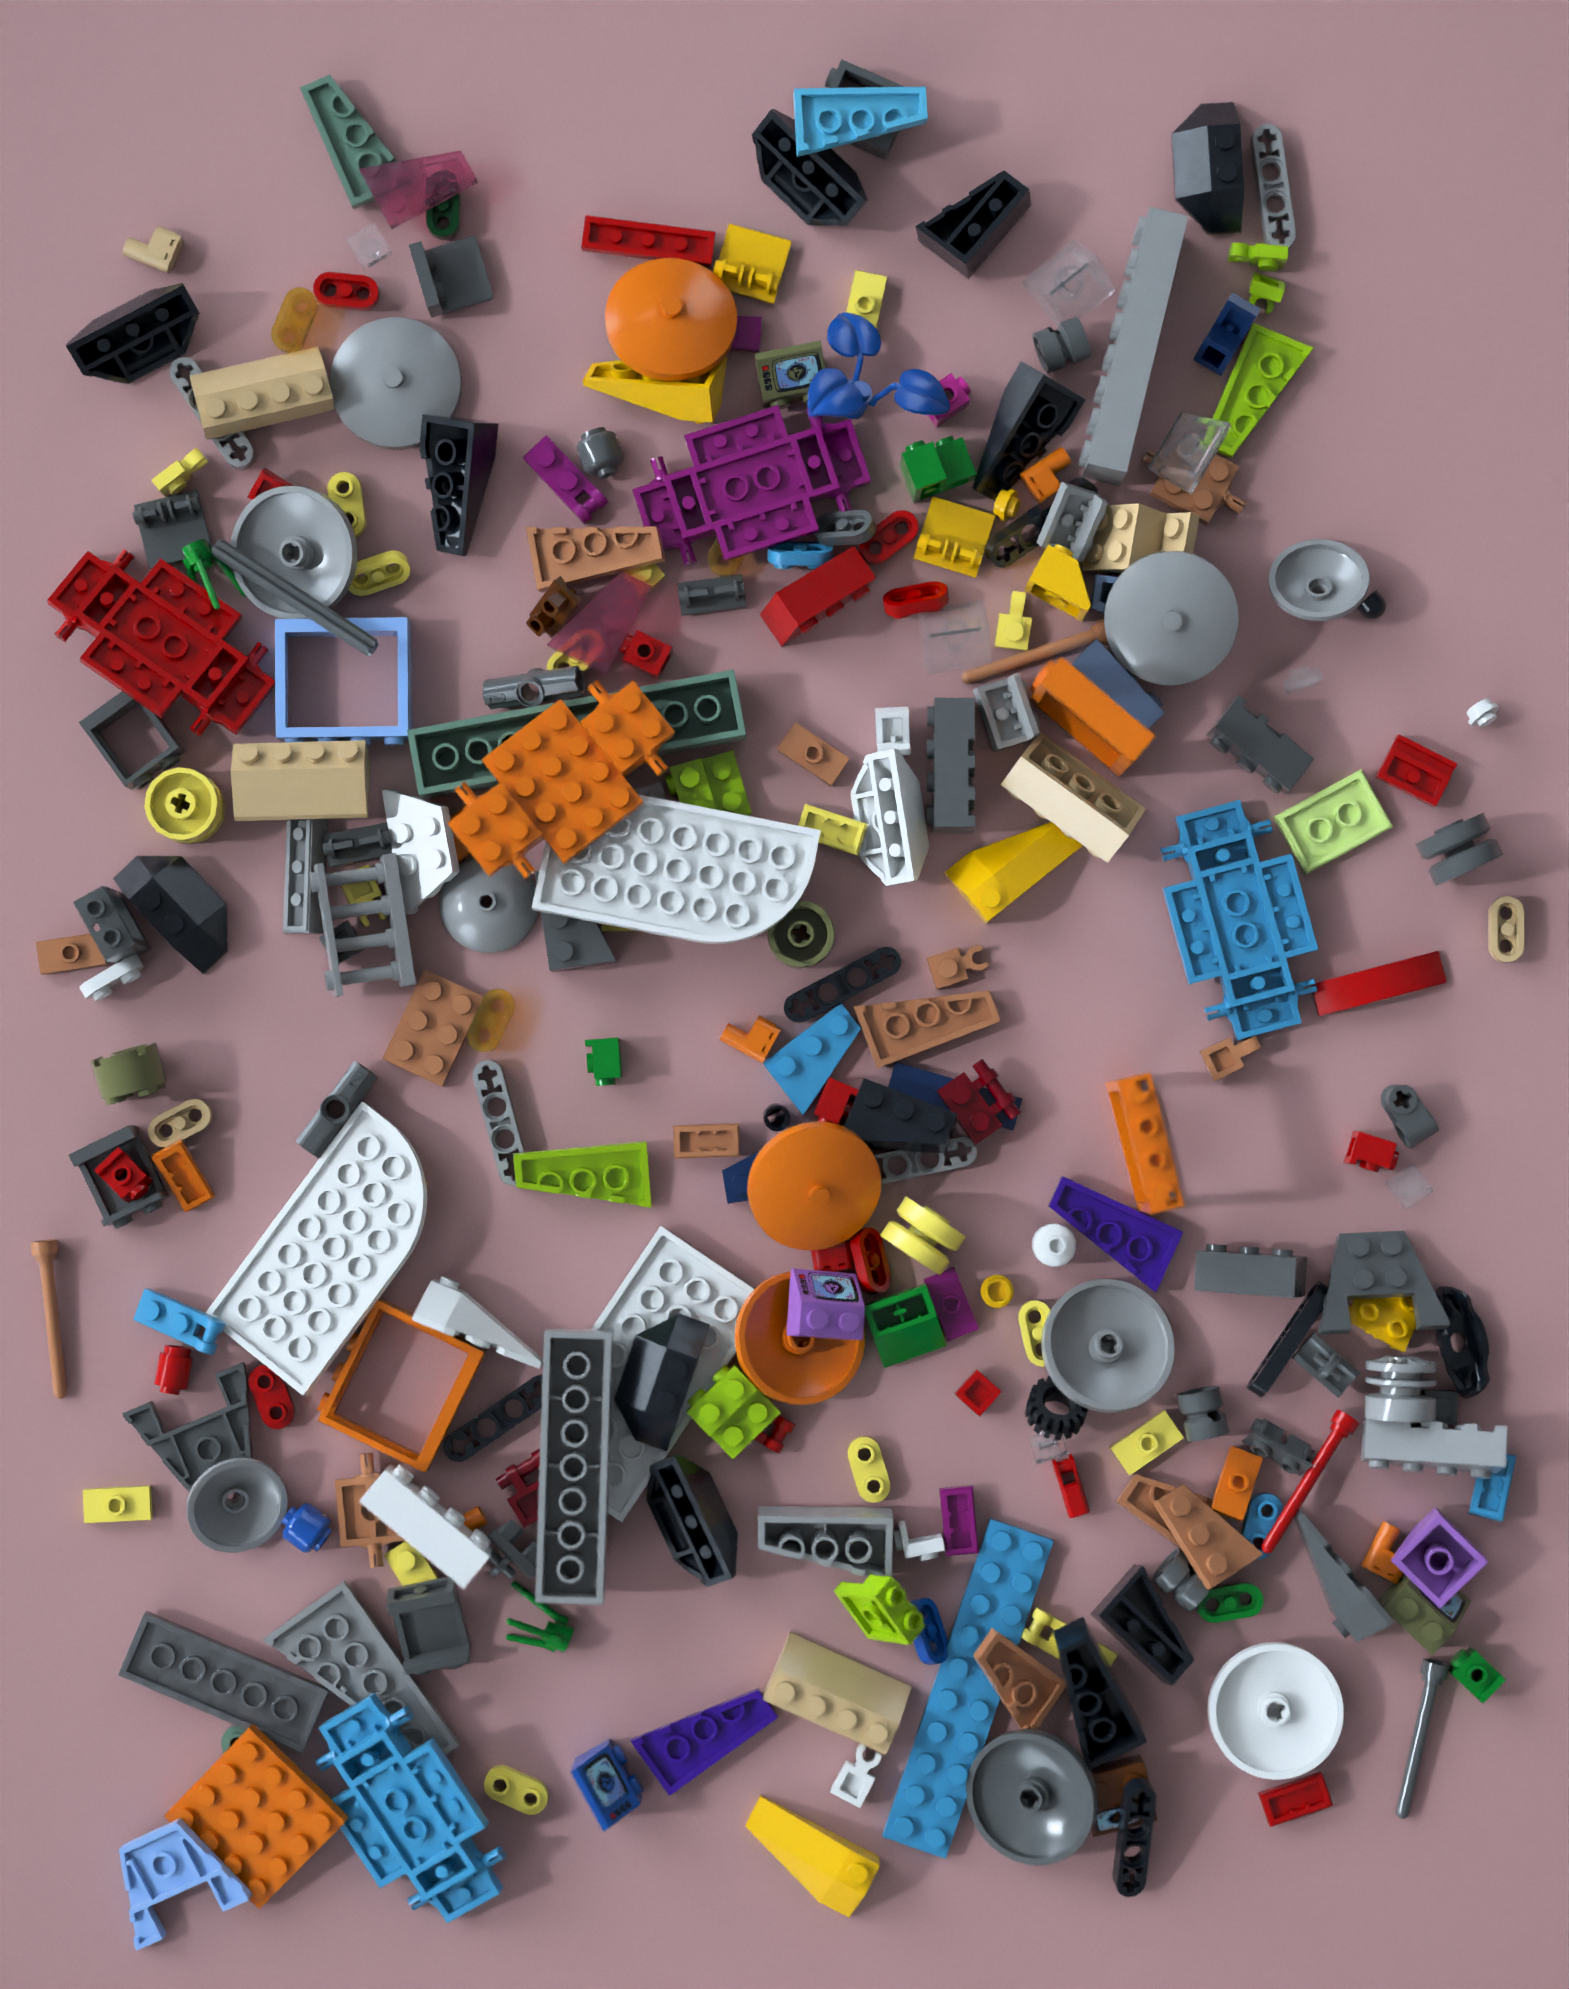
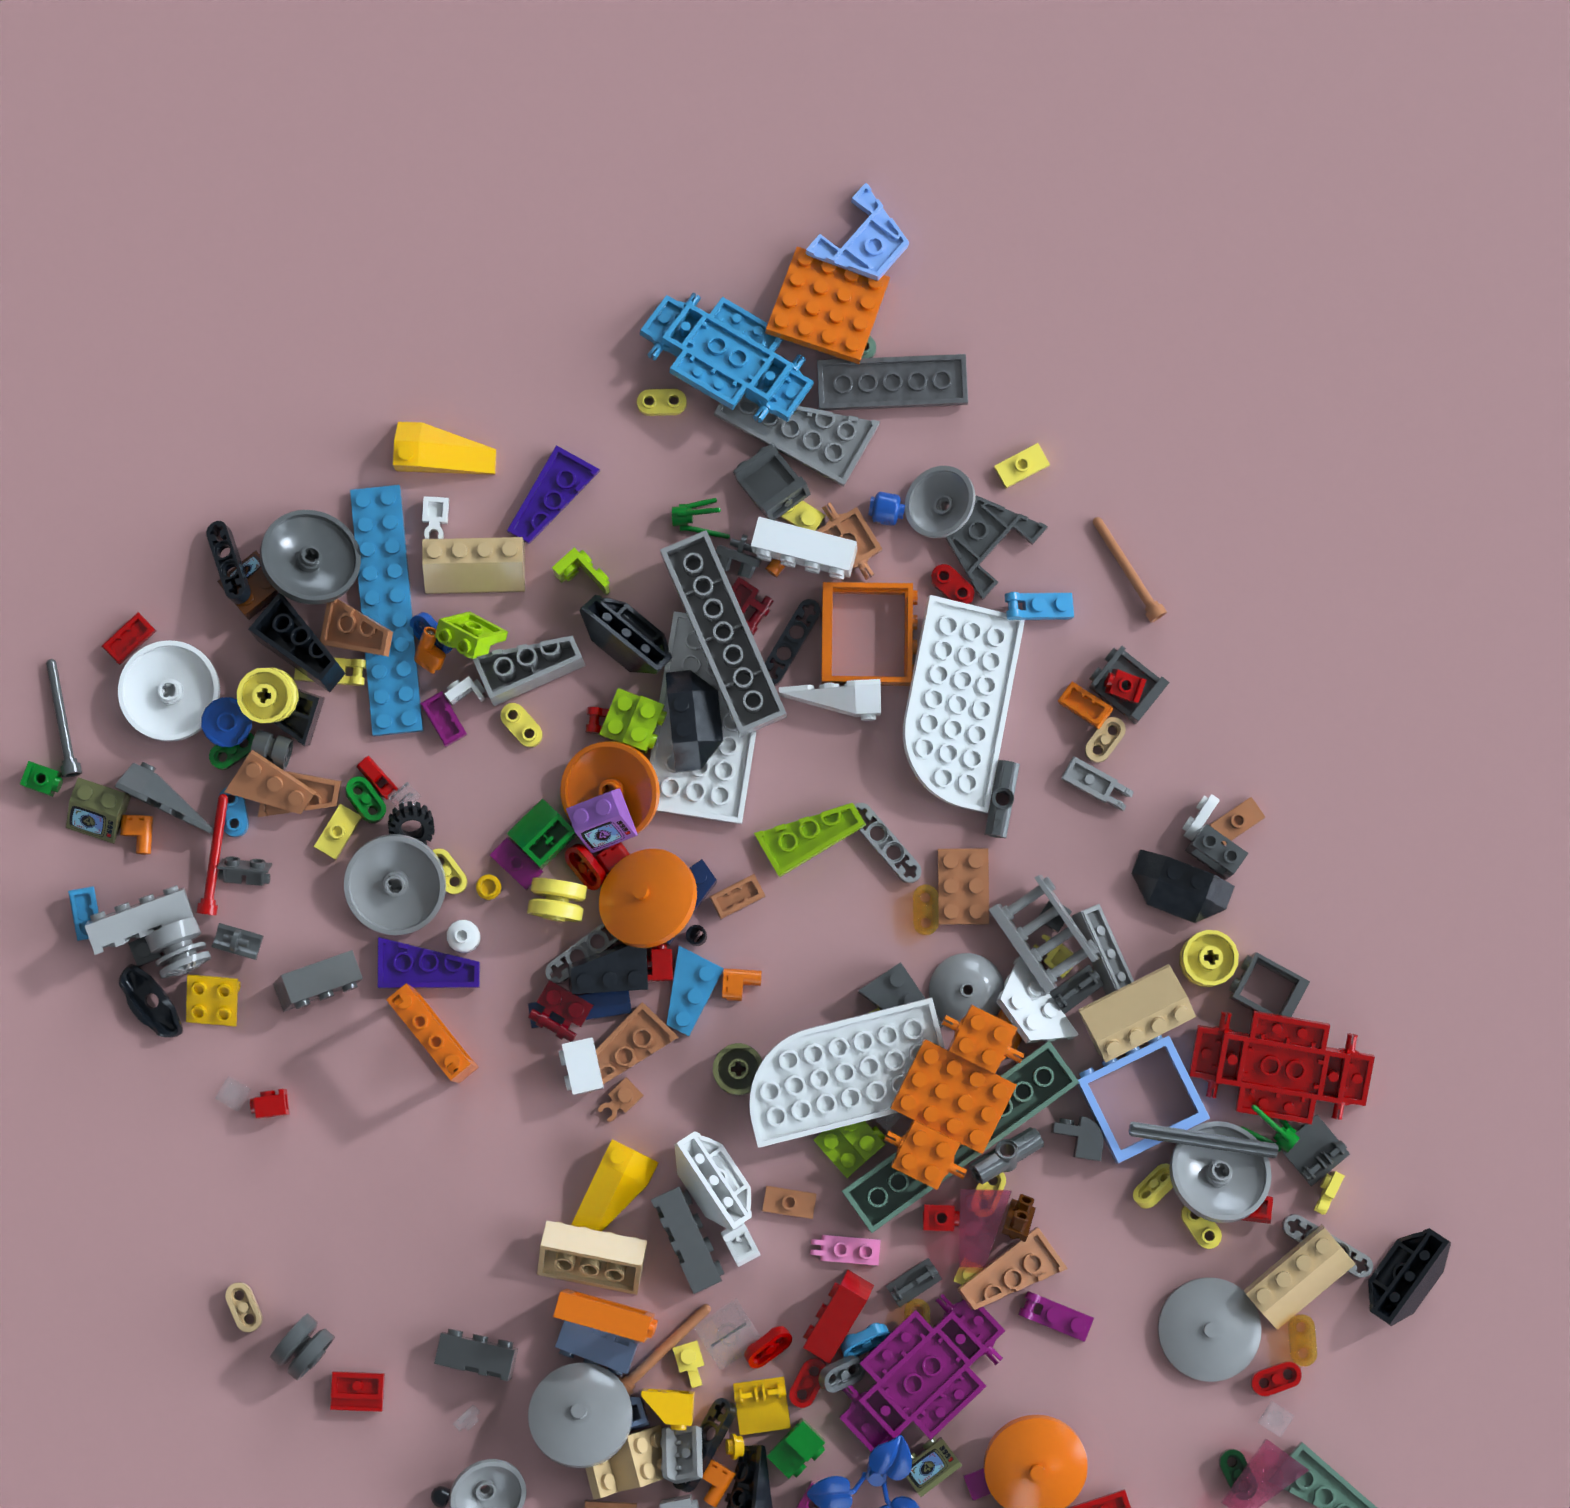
camera: 150 degrees right, 5 degrees down
(129, 1071) = (1155, 757): olive brick -> none
(159, 253) = (1421, 1345): tan piece -> none
(173, 1369) = (1027, 572): red brick -> none
(217, 1077) = (1095, 782): none -> light grey hinge
(427, 668) = (1088, 1137): none -> dark grey brick
(451, 275) = (1207, 1425): dark grey bracket -> none
(458, 467) = (1135, 1290): black wedge -> none
(600, 452) = (1040, 1346): dark grey head -> none
(604, 1060) = (834, 919): green brick -> none
(607, 1783) = (602, 434): blue slope -> none
(685, 400) = (995, 1412): yellow wedge -> none
(726, 1633) = (567, 569): none -> lime bracket
(771, 668) = (847, 1249): none -> bright pink hinge
(835, 829) = (748, 1155): light yellow plate -> none
(840, 981) = (690, 1046): black beam -> none
(942, 1609) = (428, 654): none -> orange piece
(977, 1392) = (470, 811): red plate -> none
(984, 1023) = (582, 1066): none -> white brick
(1007, 712) = (666, 1295): light grey bracket -> none
(1098, 1464) = (366, 800): none -> green plate
(1180, 1648) = (252, 696): none -> light yellow wheel
(1203, 1413) = (308, 869): dark grey wheel -> none
(1223, 1639) = (225, 723): none -> blue tile
(1225, 1057) = (402, 1123): nougat plate -> none
(1236, 1483) = (263, 832): orange plate -> none
(1239, 919) = (436, 1225): dark azure piece -> none
(1288, 1340) = (270, 948): black beam -> none
(1333, 822) = (400, 1327): yellowish green tile -> none
(1378, 1267) = (231, 1025): dark grey wing -> none
(1379, 983) = (317, 1226): red slope -> none
(1411, 1118) = (252, 1141): dark grey piece -> none
(1438, 1557) = (101, 845): medium lavender slope -> none
(1482, 713) = (328, 1455): white plate -> none

